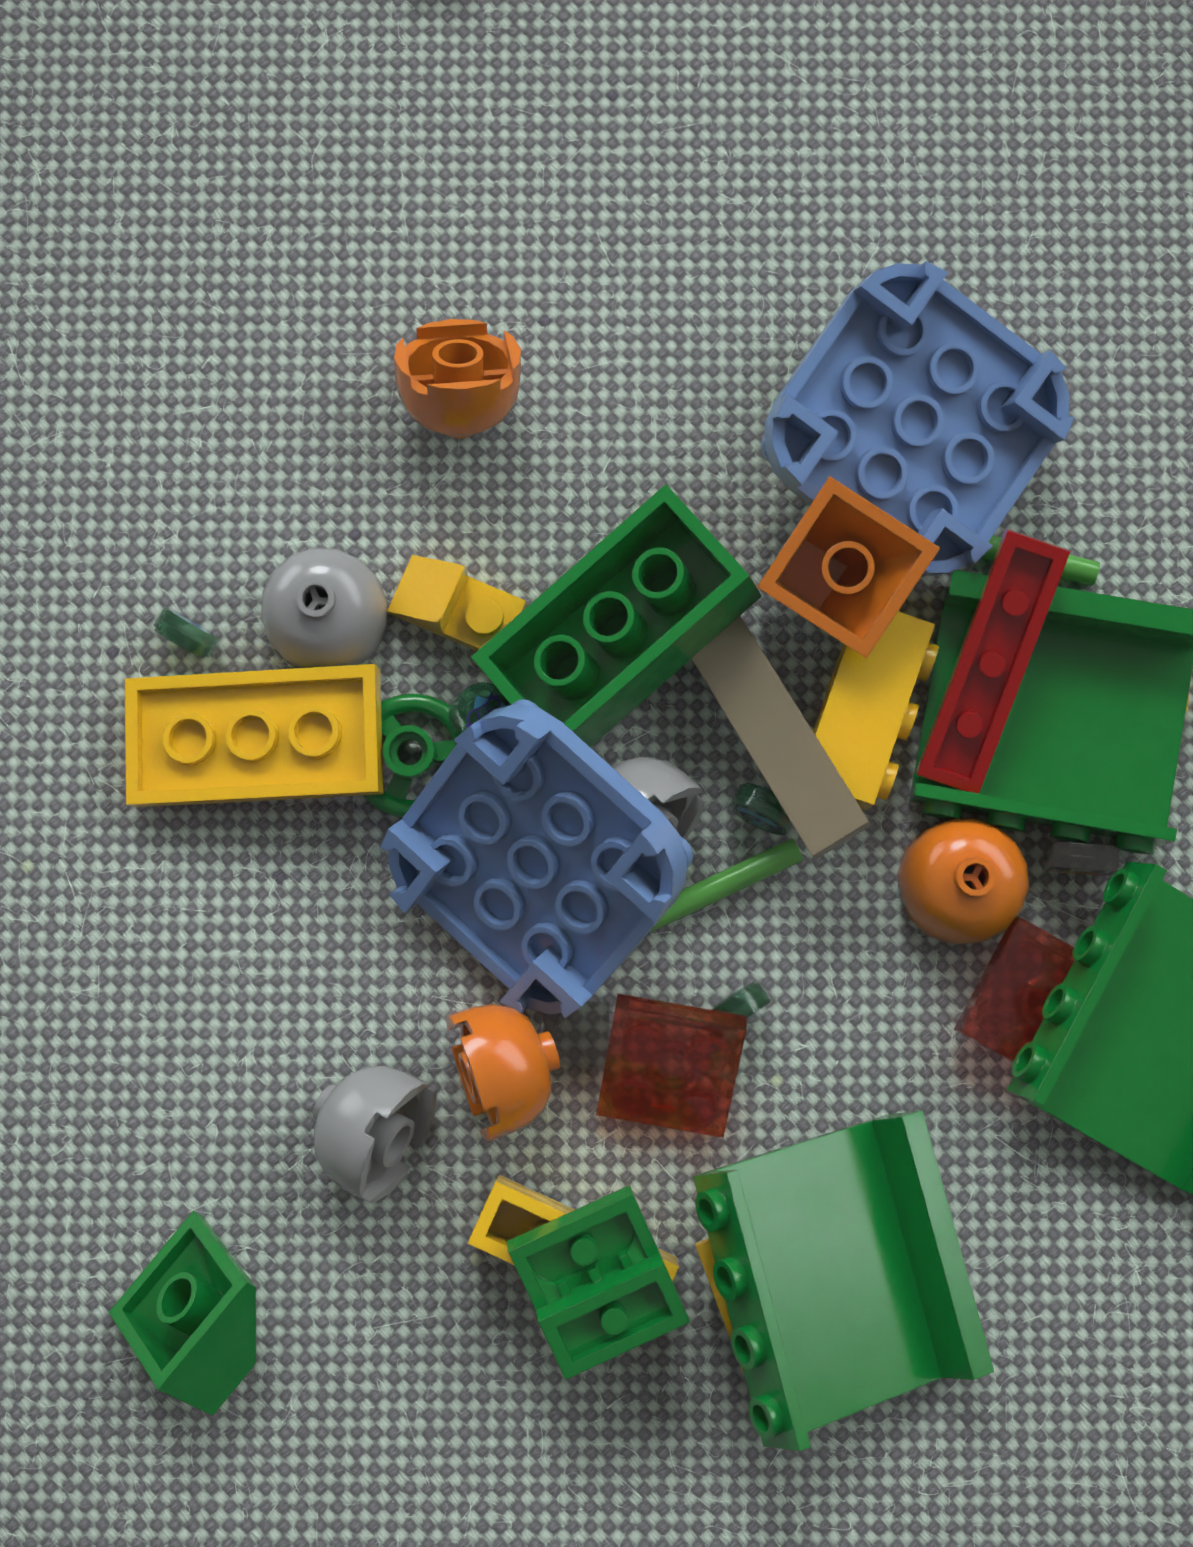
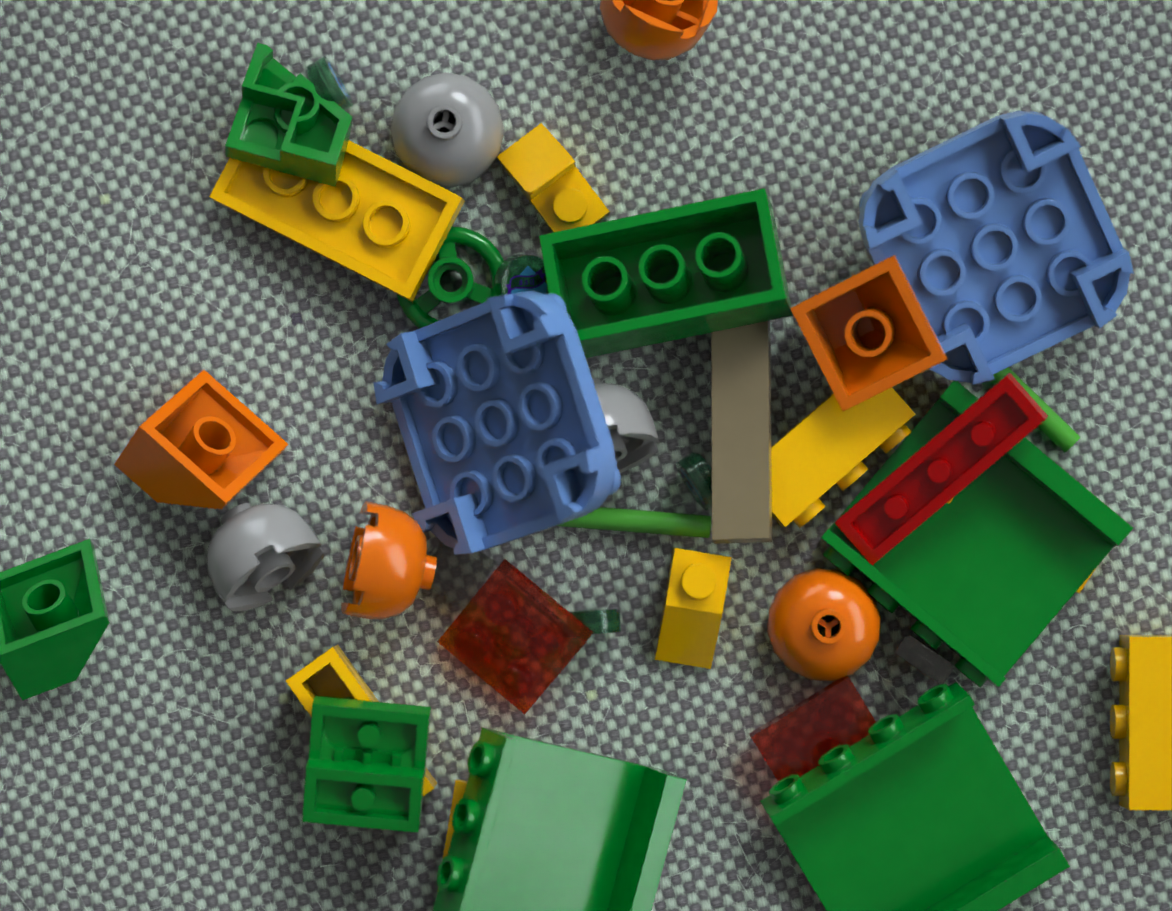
camera: 30 degrees right, 5 degrees up
(163, 689) = (287, 123): none -> green slope
(251, 1057) = (199, 447): none -> orange slope
(827, 936) = (692, 608): none -> yellow slope

